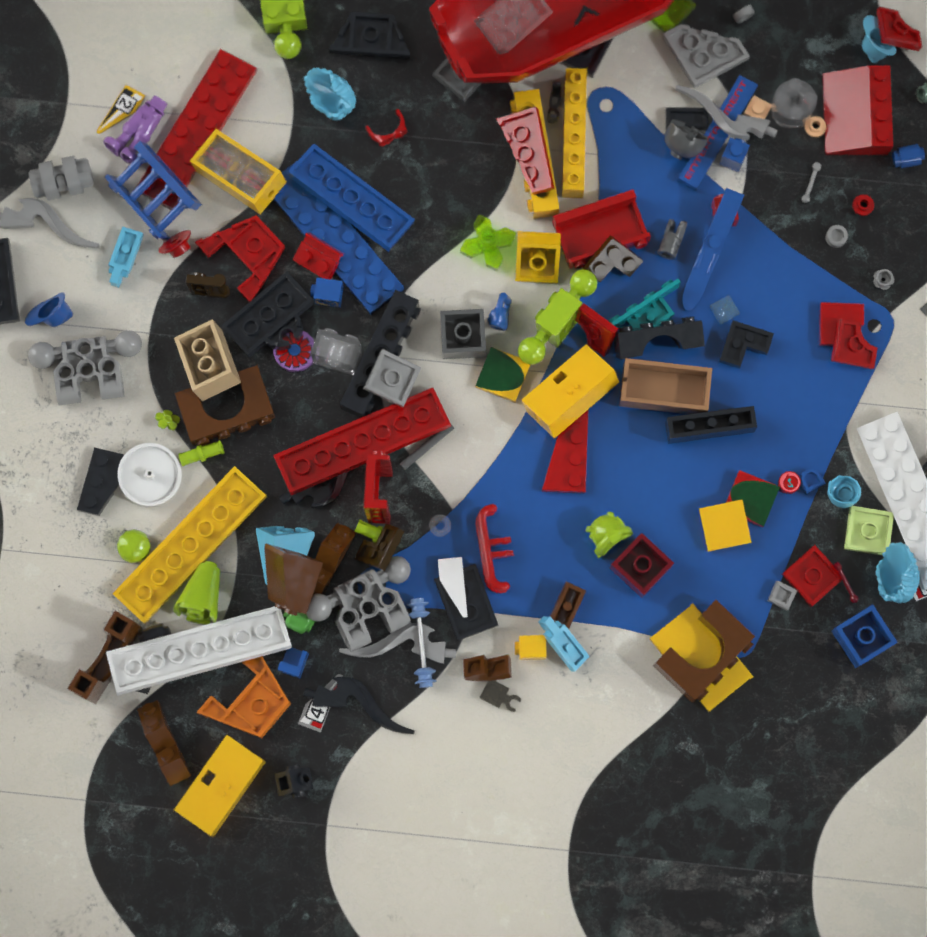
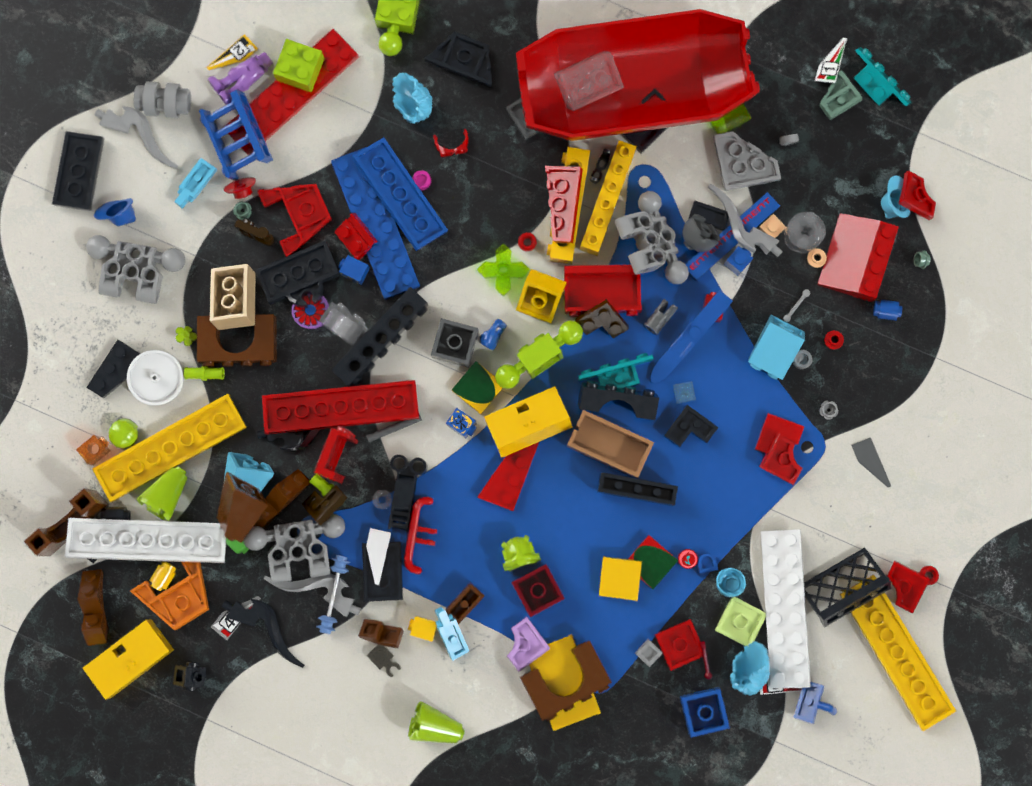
camera: 20 degrees right, 5 degrees up
(107, 582) = (86, 453): none -> clear orange brick
(181, 264) = (247, 210): none -> sand green plate
(197, 96) = (298, 65): none -> lime brick
(228, 684) = (162, 575): none -> yellow brick
(238, 171) = (312, 141): brick -> none
(293, 662) = (222, 575): blue panel -> none
(369, 175) = (422, 179): none -> dark pink tile
(392, 378) = (382, 362): light grey tile -> none
(461, 507) = (404, 492): none -> black piece
(499, 417) = (462, 423): none -> blue brick
(503, 200) = (525, 236): none -> red plate
(578, 747) = (434, 726): none -> lime cone
(598, 329) = (569, 379): red tile -> none
(637, 159) = (653, 240): none -> light grey connector
(650, 628) = (527, 646): none -> lavender tile
(806, 231) = (776, 347): none -> medium azure slope

